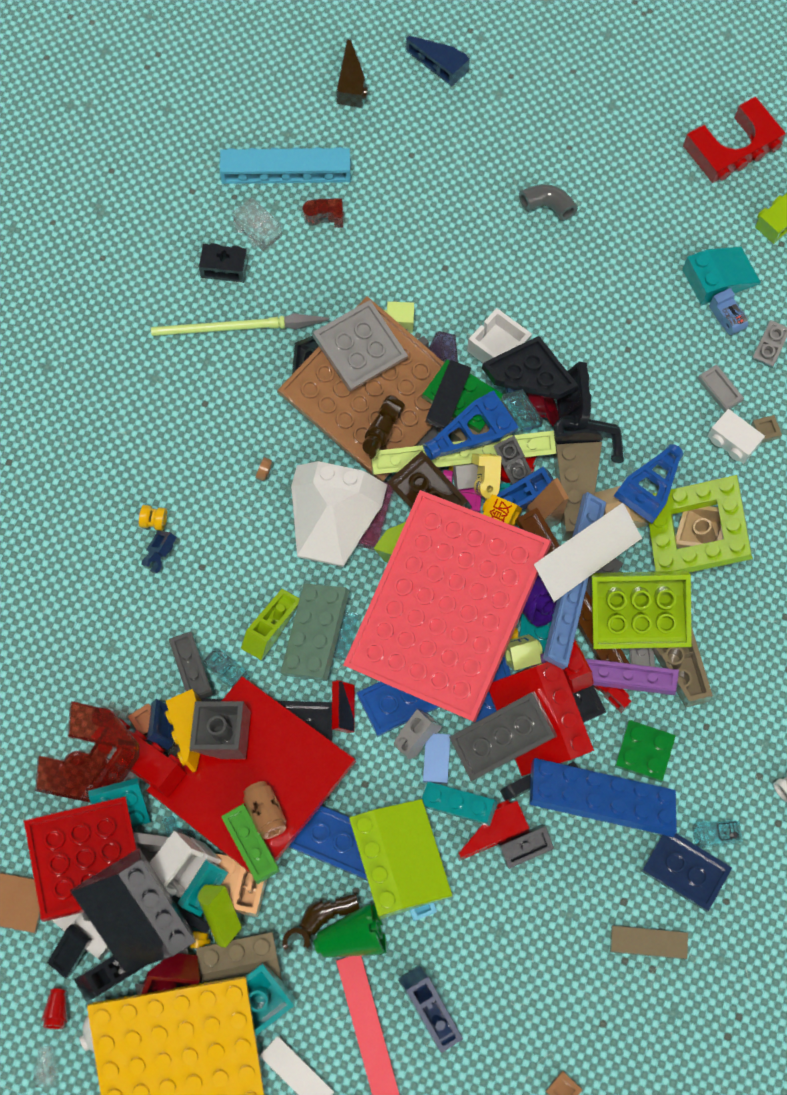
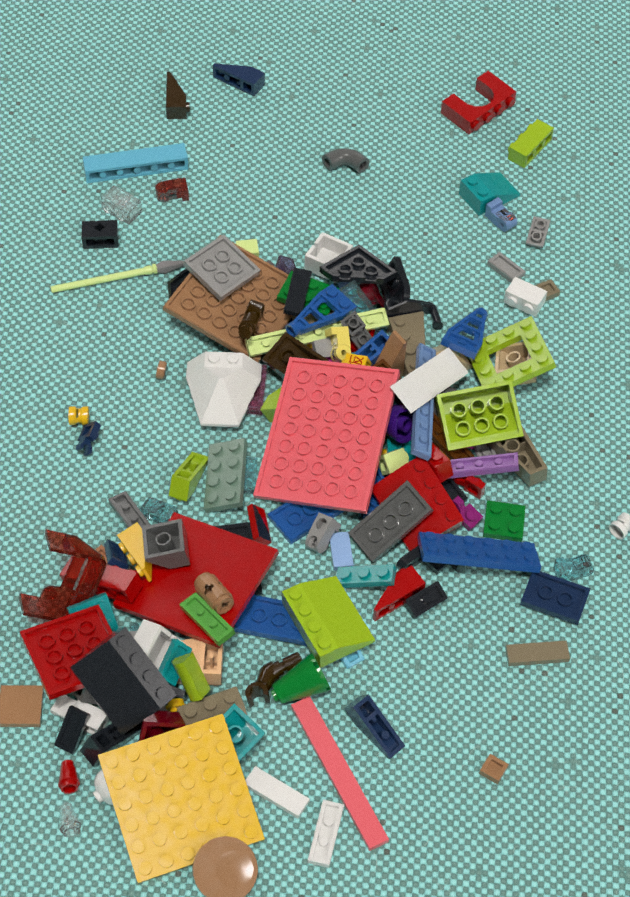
camera: 10 degrees left, 15 degrees down
(600, 735) = (469, 513): none -> magenta plate

